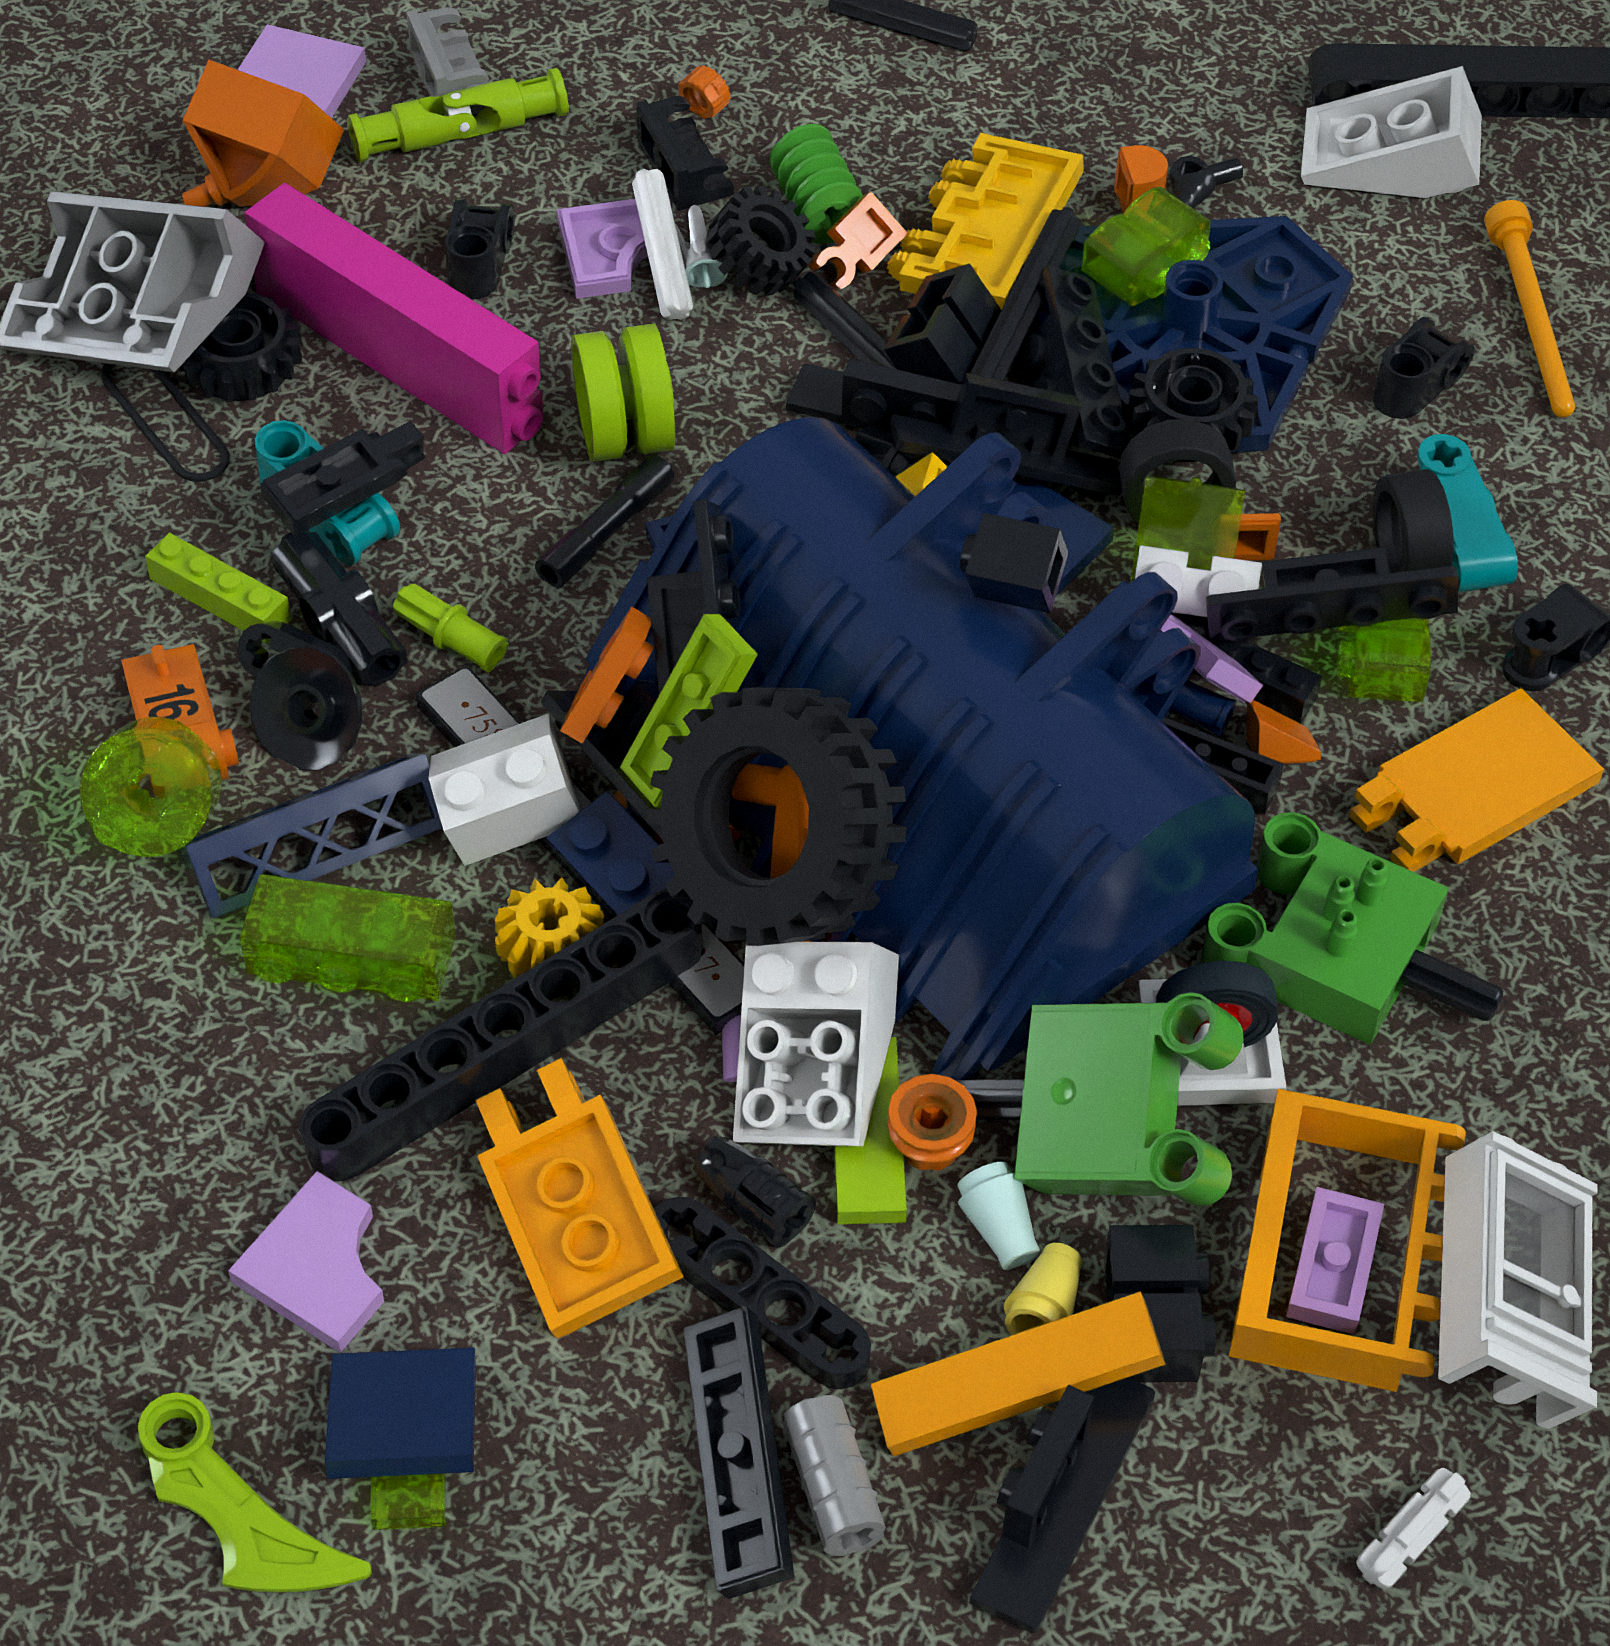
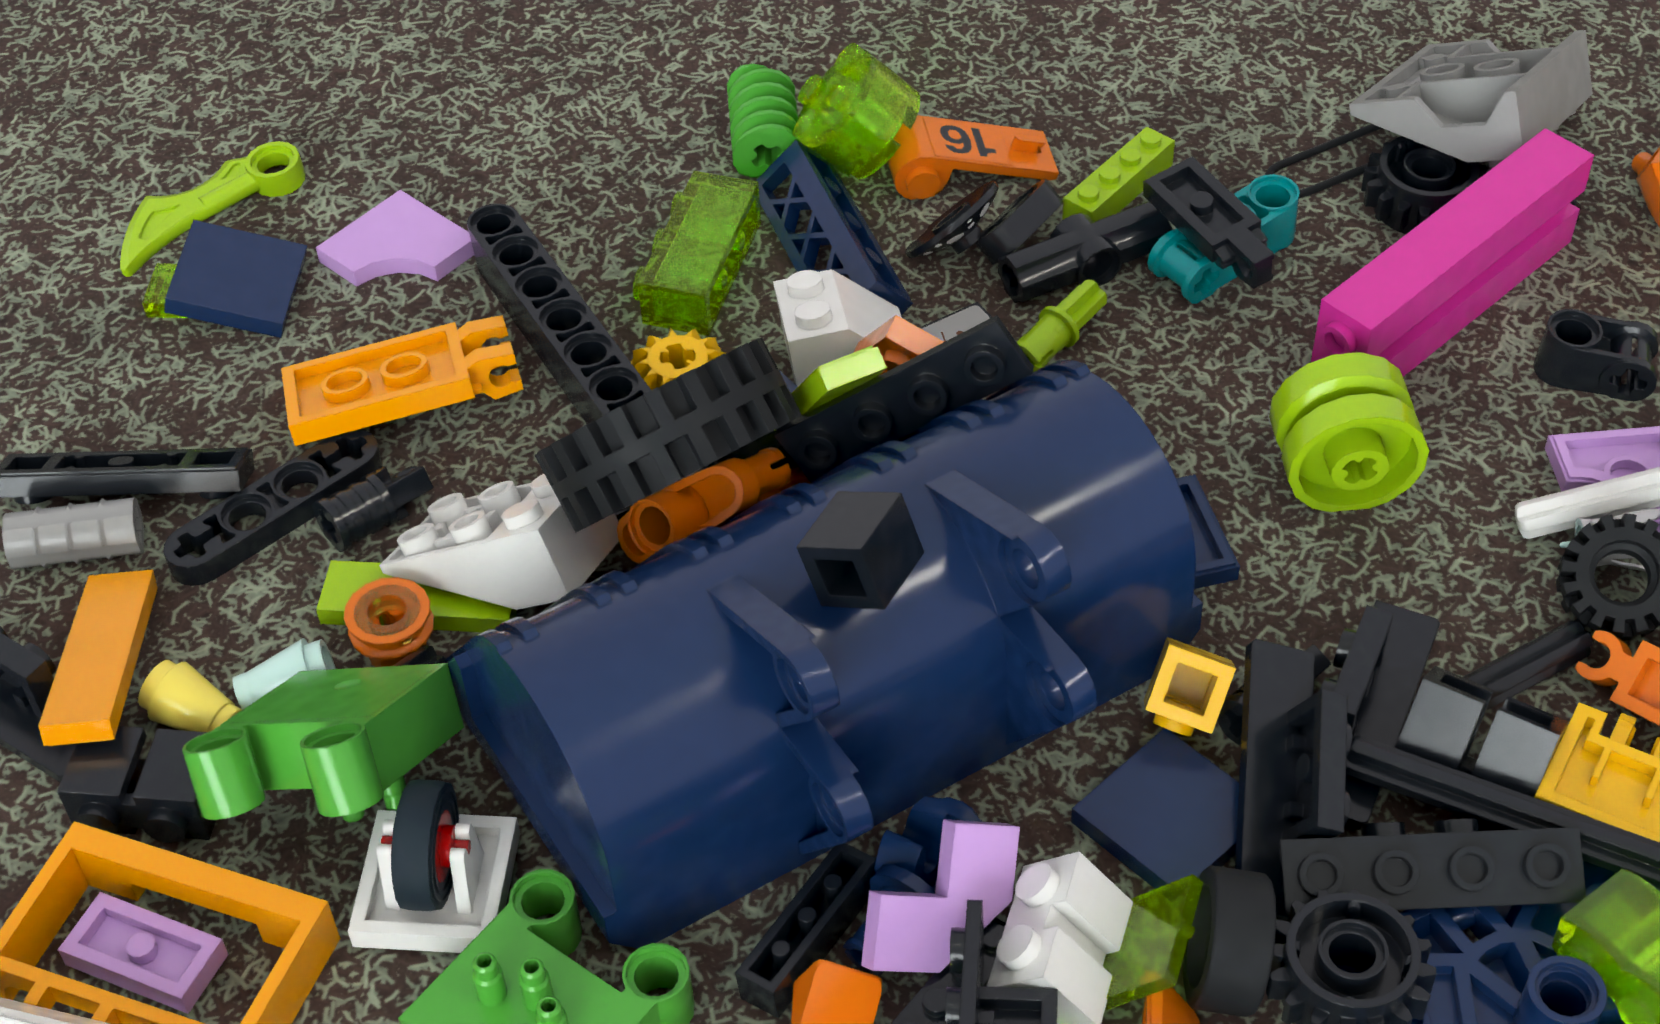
camera: 100 degrees right, 5 degrees down
(122, 900) = (760, 117): none -> bright green piece
(581, 543) = (1232, 465): black piece -> none

